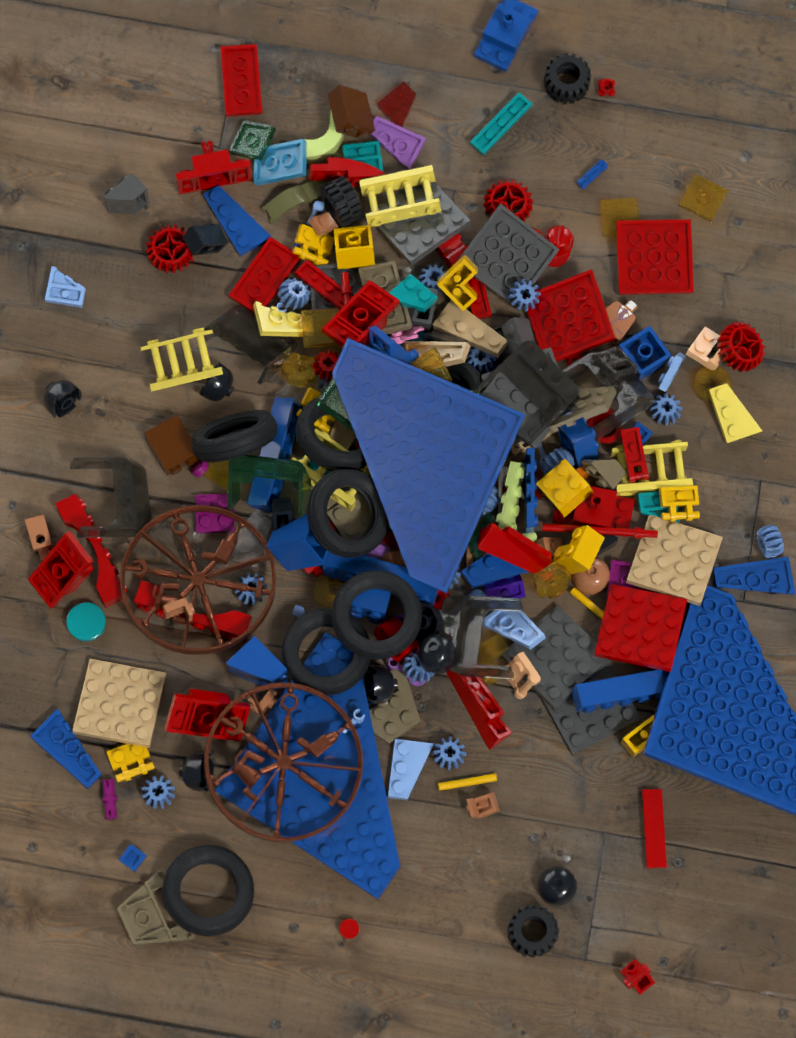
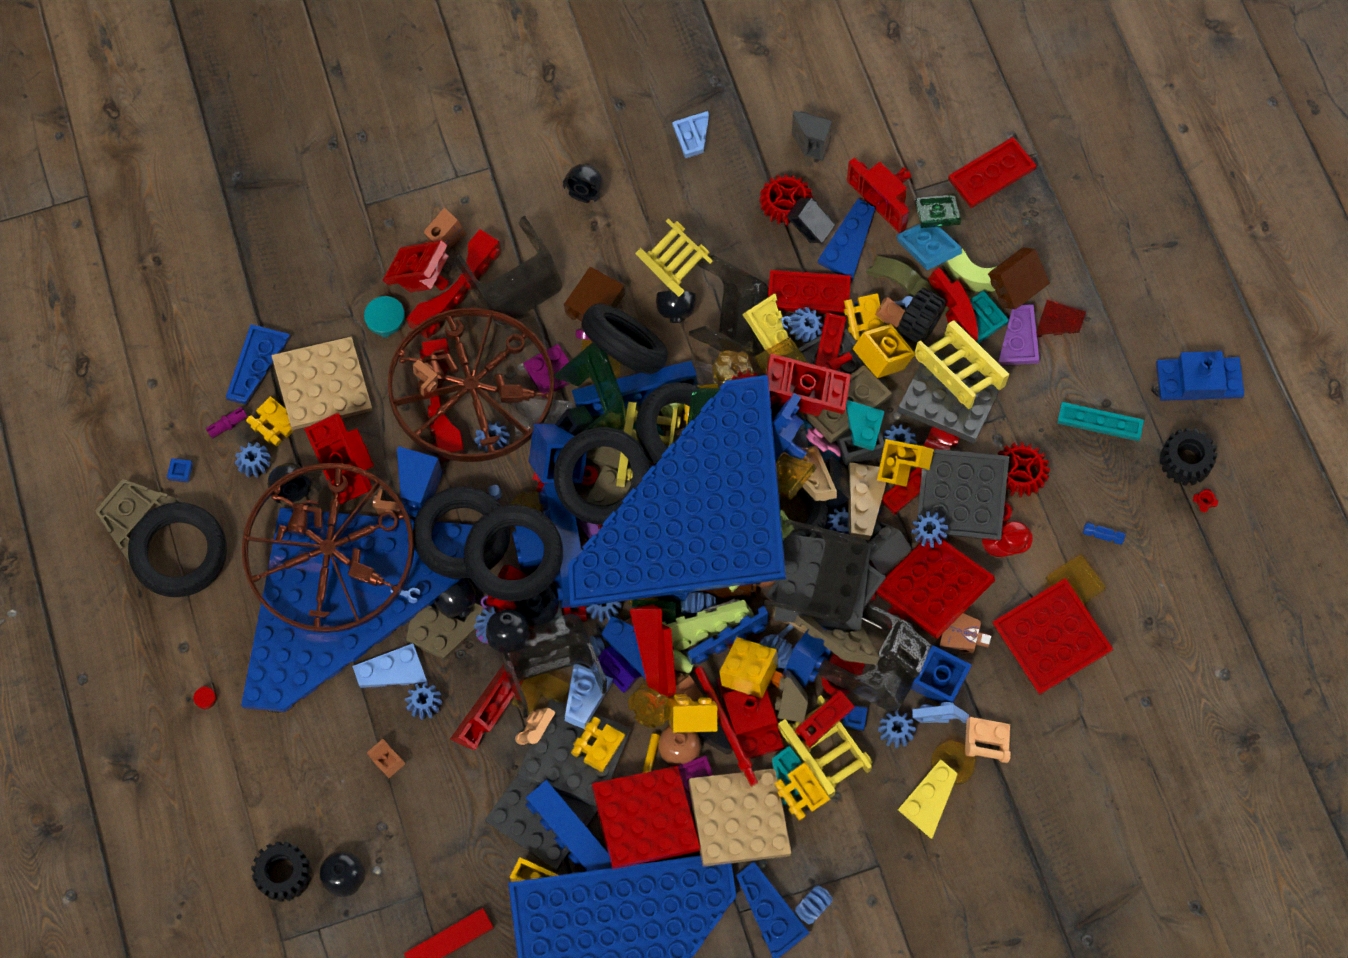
camera: 70 degrees right, 5 degrees down
(467, 782) = (414, 745): yellow bar -> none
(567, 631) = (603, 749): none -> yellow plate
(703, 198) = (1148, 653): clear yellow plate -> none
(741, 346) = (1013, 763): red gear -> none

